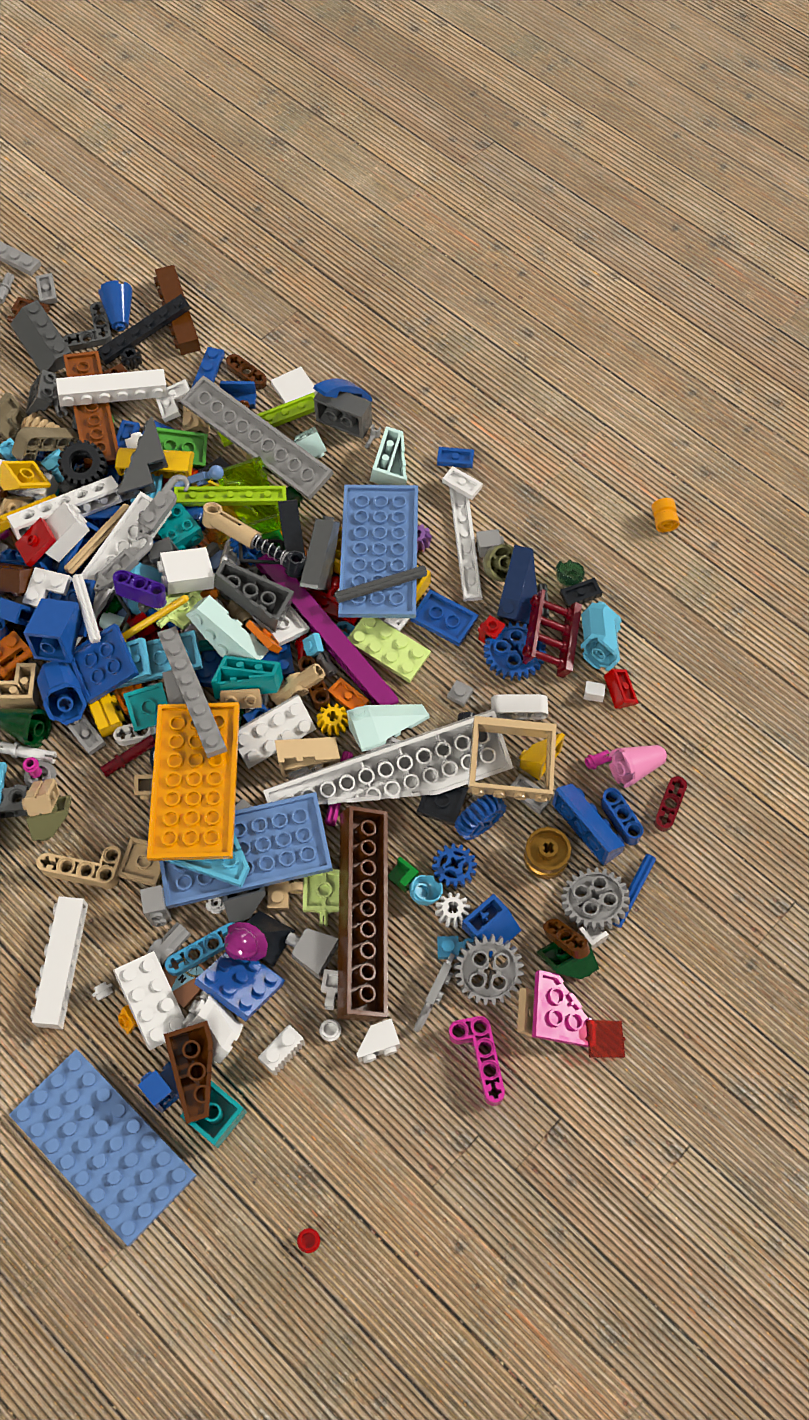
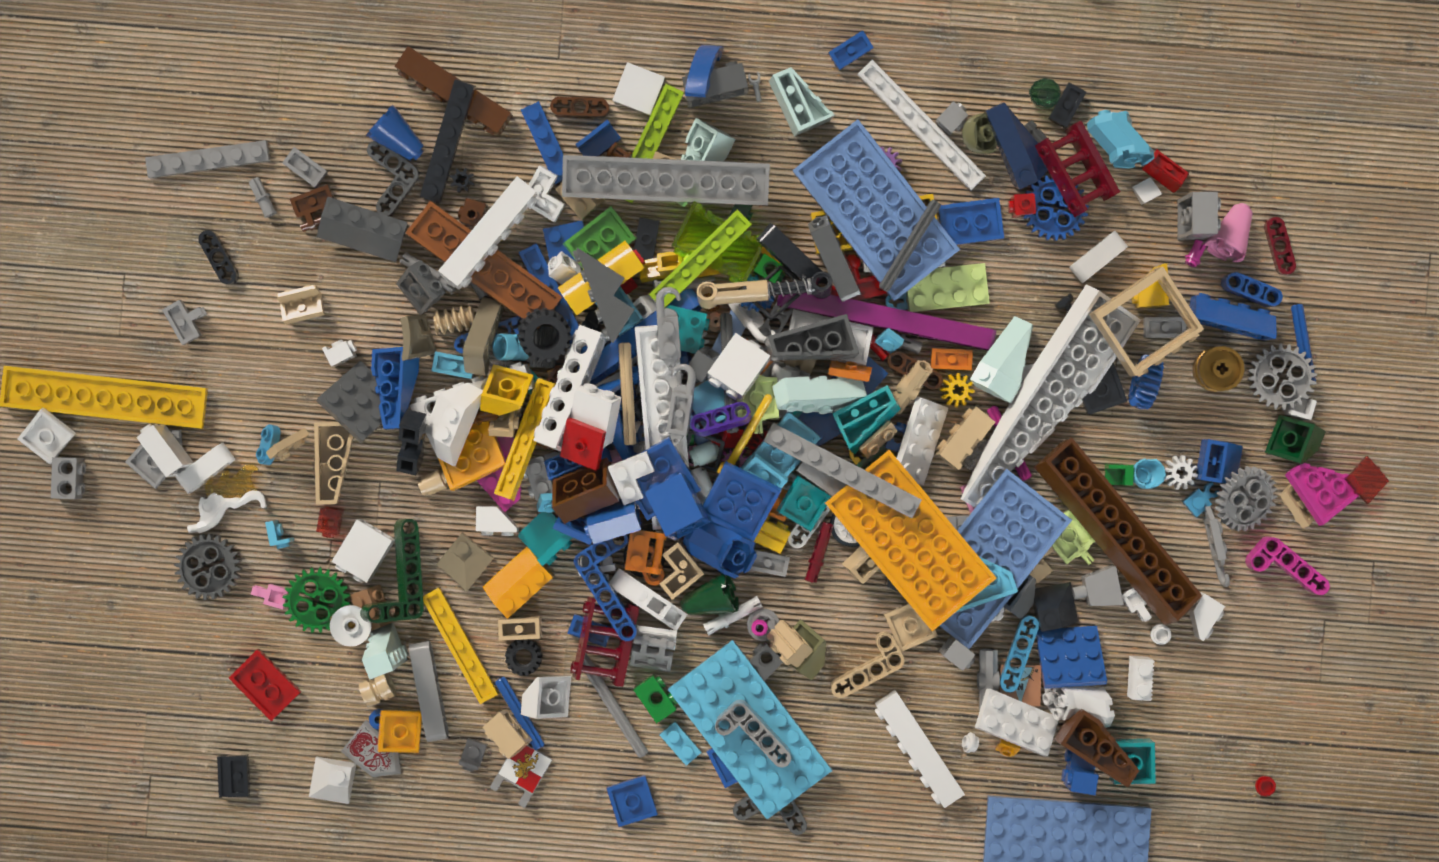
camera: 40 degrees left, 25 degrees up
(86, 608) = (688, 469): white axle -> none
(202, 478) = (655, 270): medium blue plate -> none
(245, 942) = (1054, 630): magenta piece -> none
(452, 858) = (1156, 428): blue gear -> none
(460, 693) = (1038, 281): light grey plate -> none
(462, 483) = (882, 76): white plate -> none
(582, 949) = (1293, 435): reddish brown beam -> none
(618, 722) = (1198, 216): none -> light grey brick

